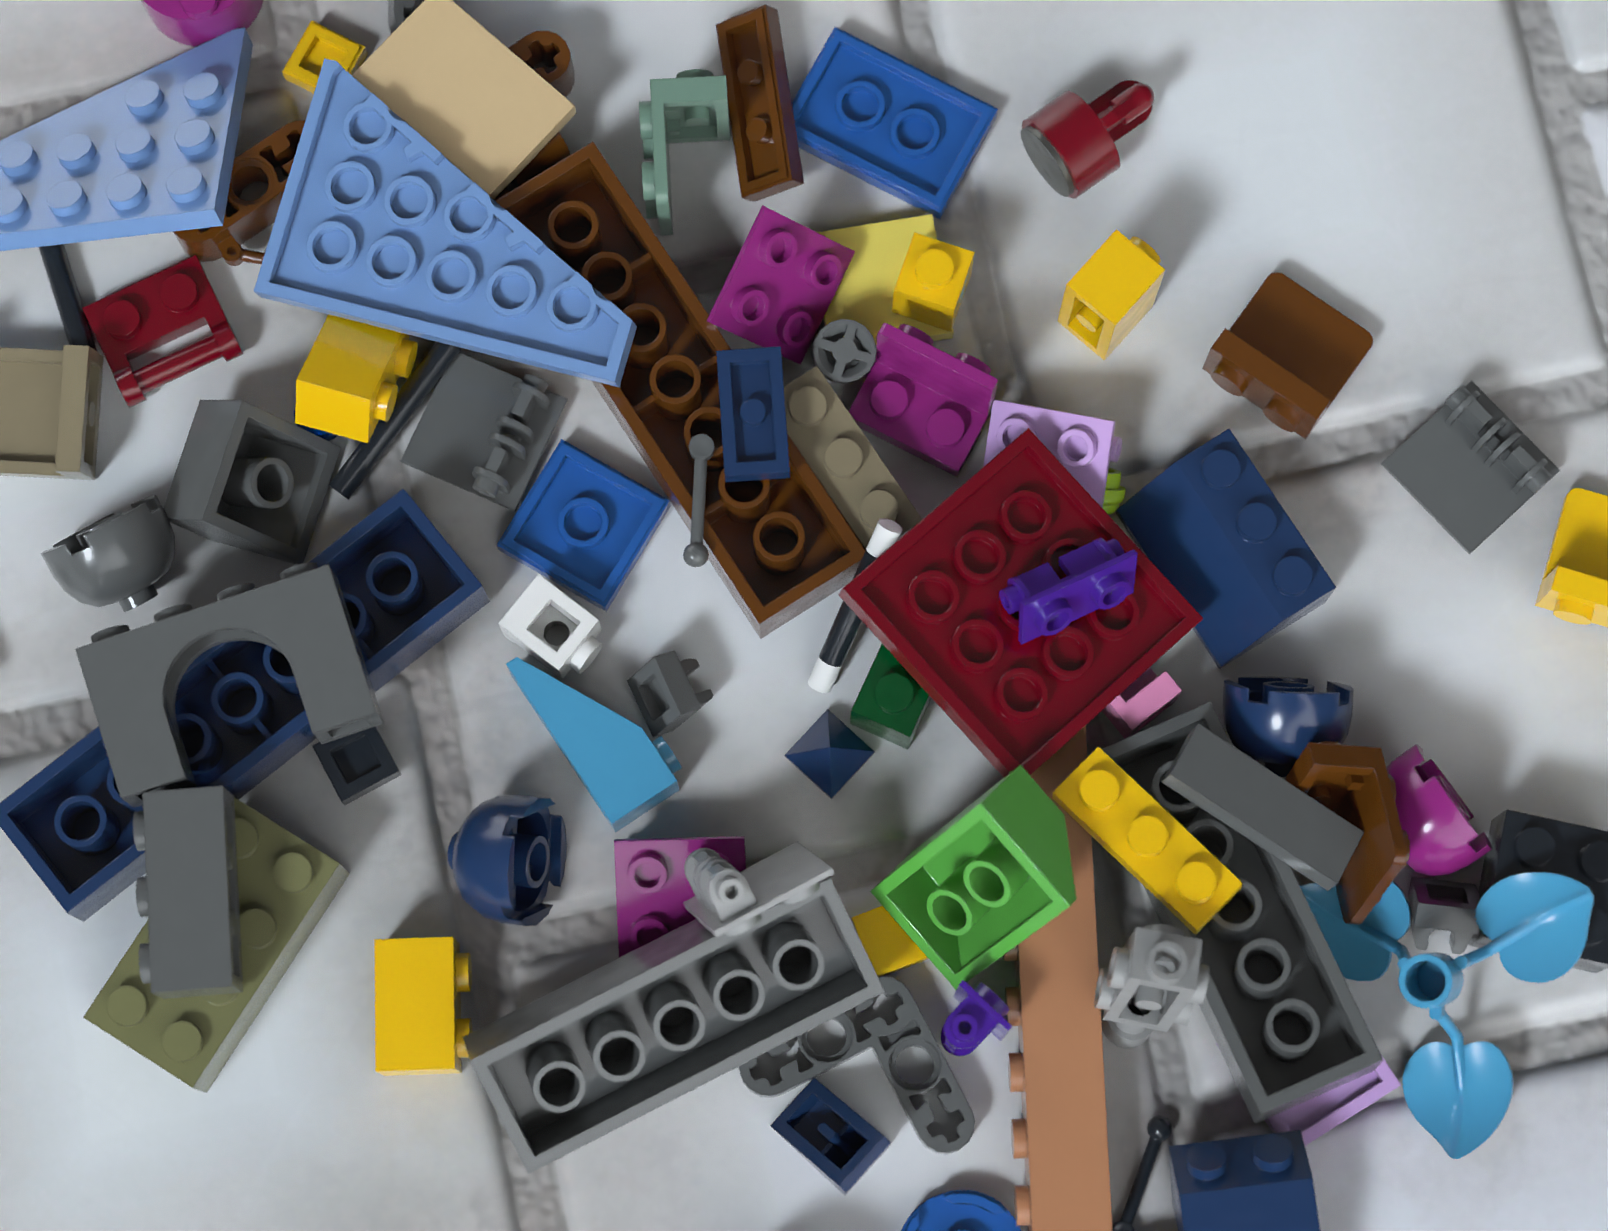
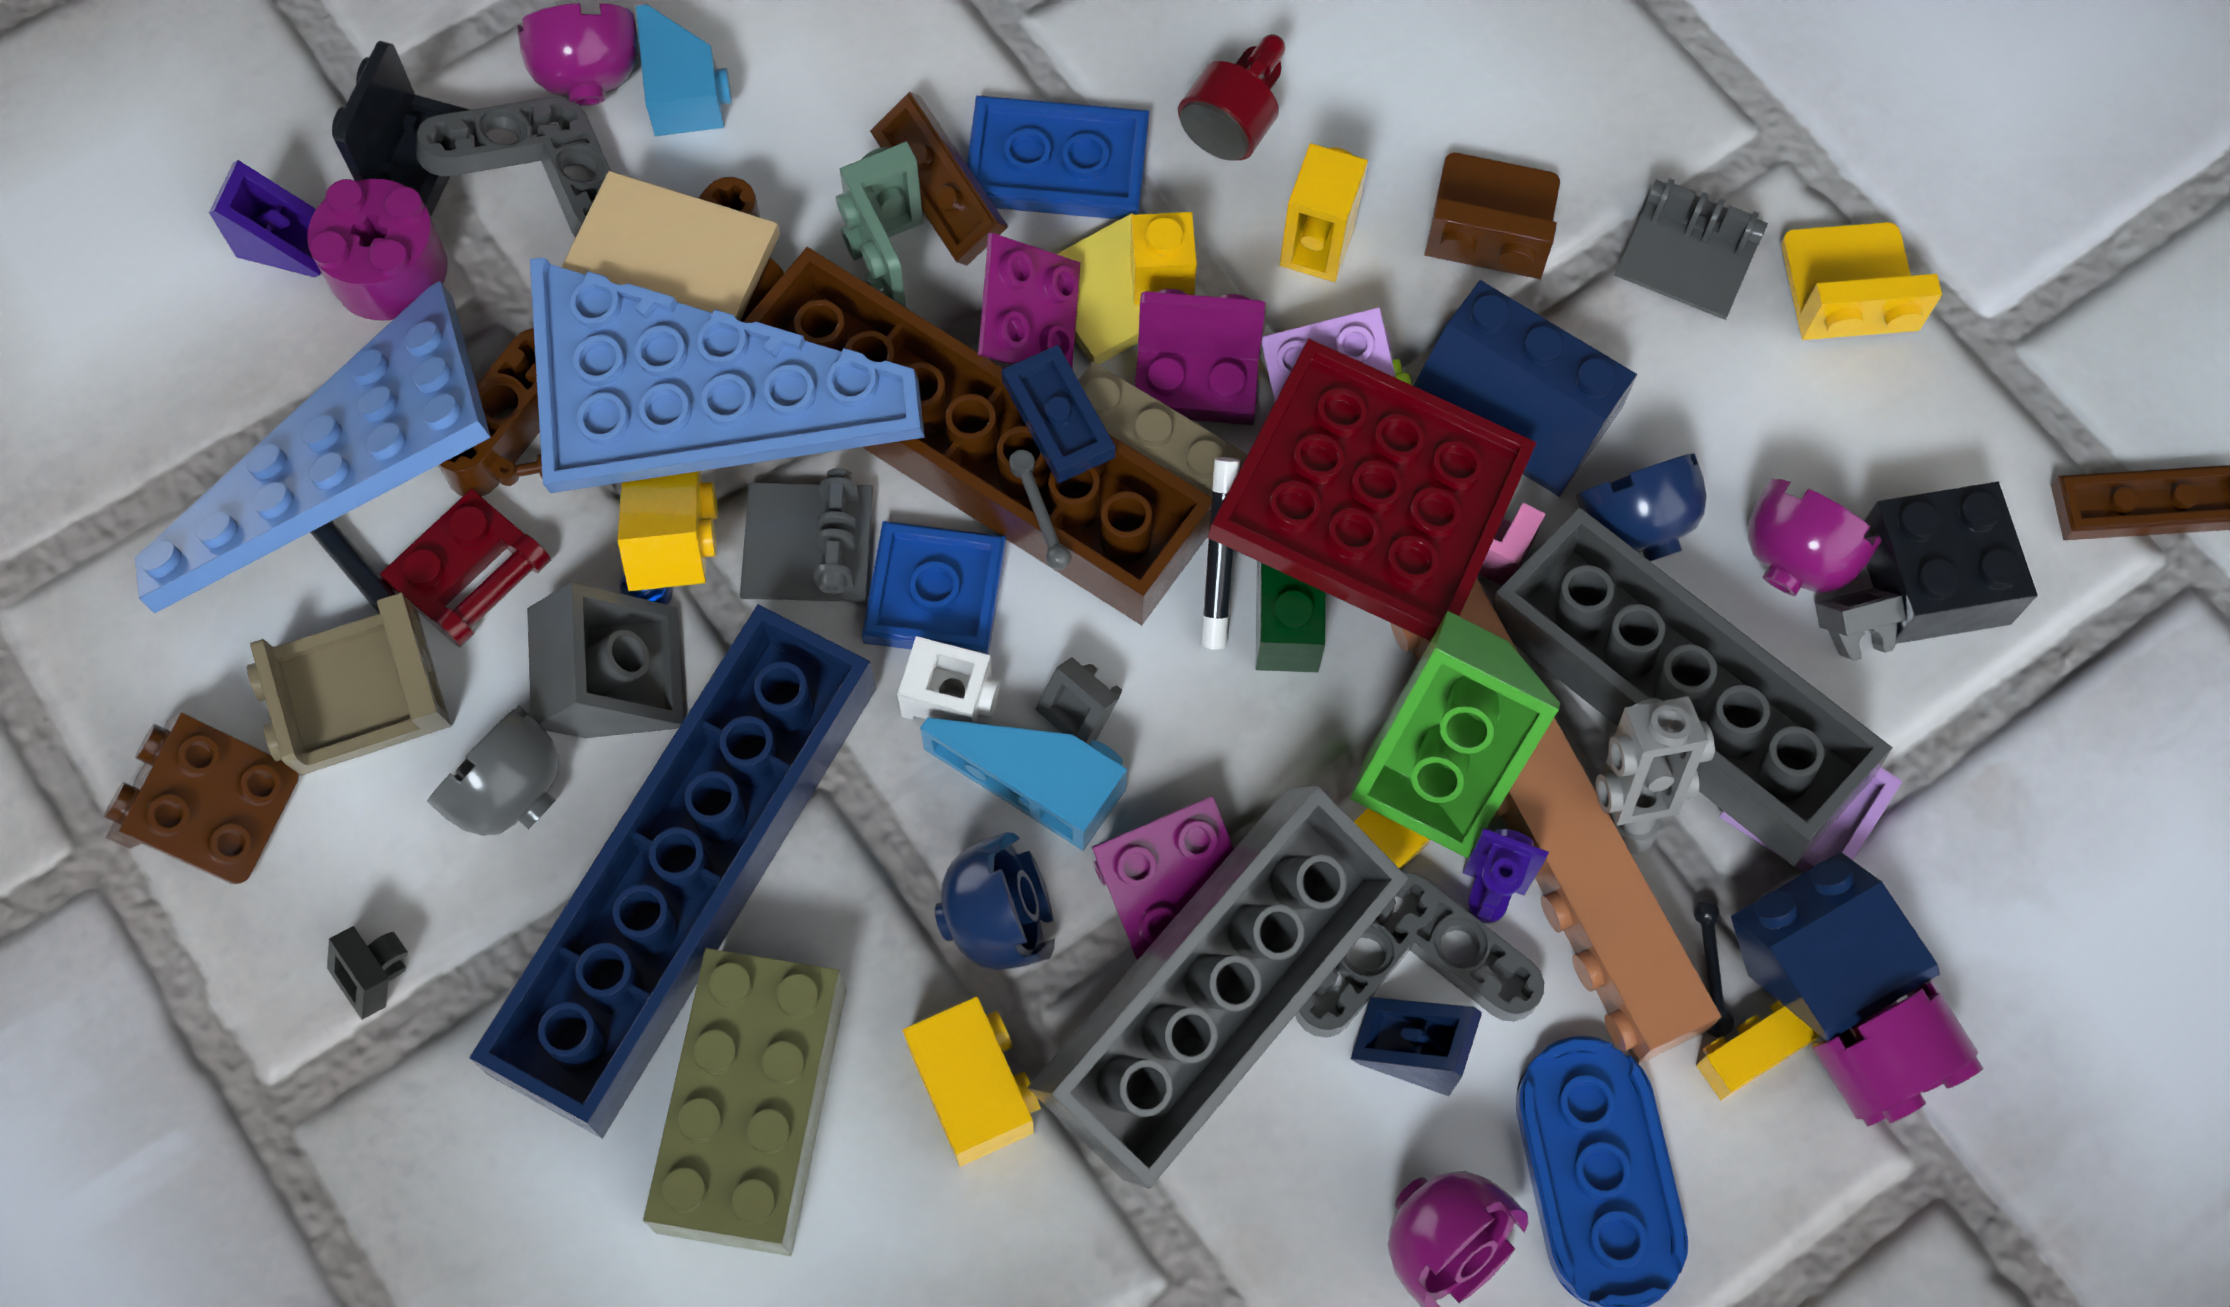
camera: 25 degrees left, 10 degrees down
(138, 671) = (704, 752): dark grey arch -> none
(189, 892) = (705, 1049): dark grey brick -> none
(315, 45) = (512, 286): yellow tile -> none
(357, 763) = (811, 877): black plate -> none
(407, 402) = (727, 534): black bar -> none
(734, 900) = (1237, 835): light grey hinge -> none
(829, 754) = (1250, 702): dark blue slope -> none
(856, 344) = (1110, 333): dark grey wheel -> none
(1096, 579) = (1430, 437): dark purple hinge -> none
(1147, 840) = (1588, 642): yellow plate -> none
(1263, 807) = (1674, 573): dark grey tile -> none
(1361, 791) = (1753, 559): reddish brown bracket -> none
(1540, 933) = (1966, 586): dark azure plant -> none

